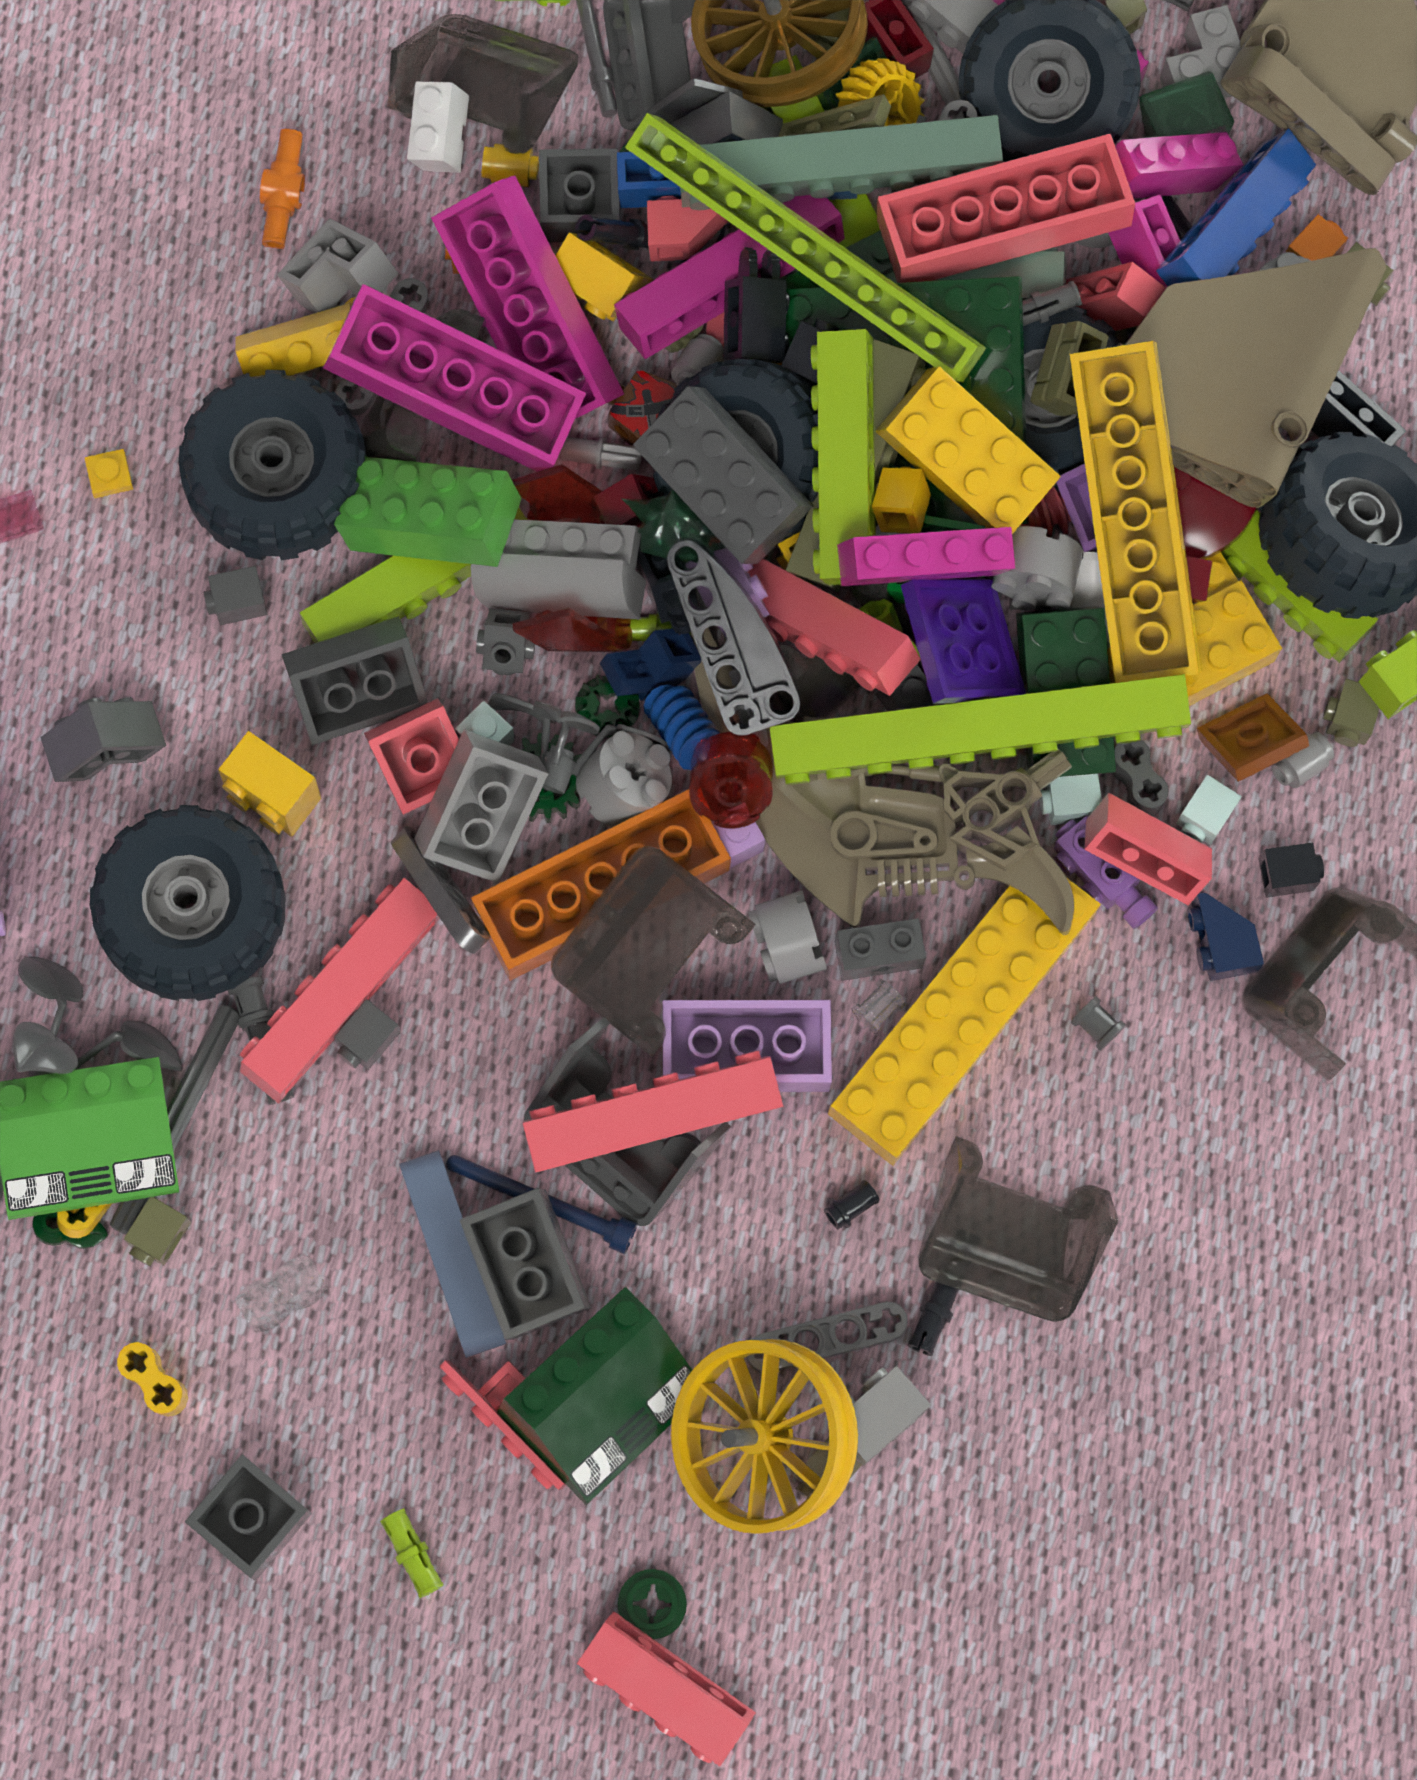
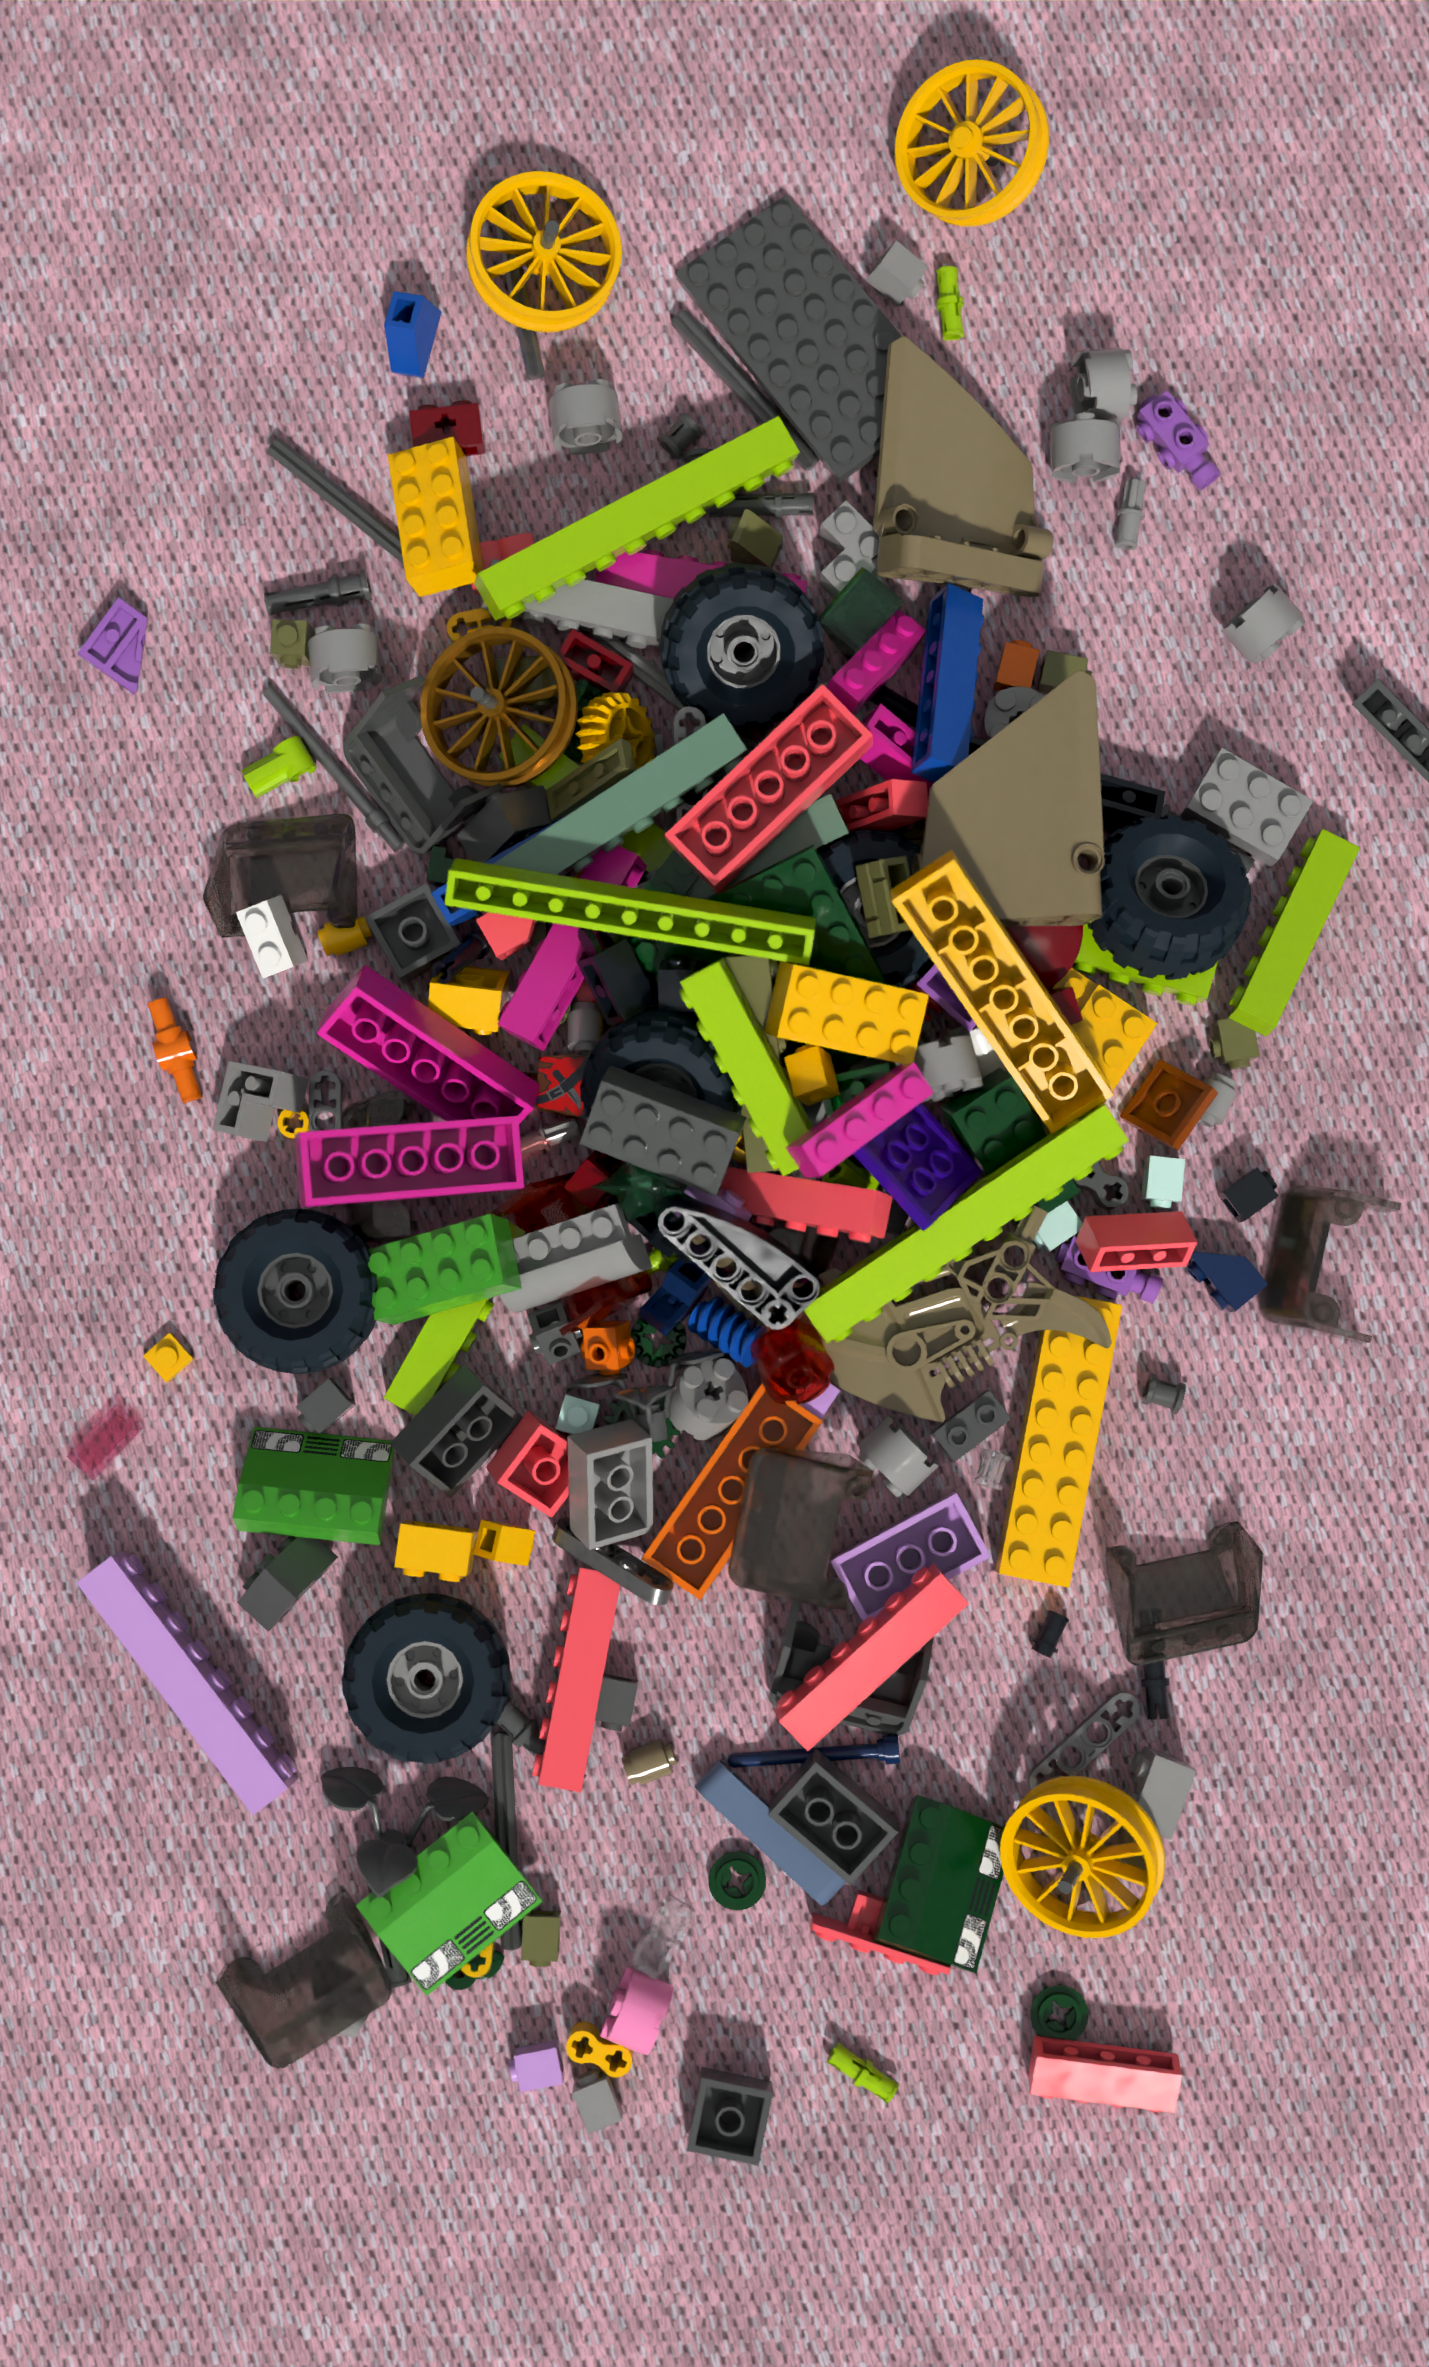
camera: 25 degrees left, 10 degrees up
(78, 1362) = (537, 2066): none -> lavender brick
(120, 1428) = (597, 2100): none -> light grey brick
(180, 665) = (314, 1486): none -> bright green slope
(213, 1355) = (637, 2011): none -> bright pink brick
(292, 344) = (257, 1180): yellow brick -> none
(341, 817) = (504, 1542): none -> yellow brick
(366, 1115) = (649, 1762): none -> dark tan brick
(376, 1271) = (730, 1896): none -> dark green gear
(552, 679) = (608, 1346): none -> orange brick
(1064, 297) = (842, 846): dark grey pin -> none

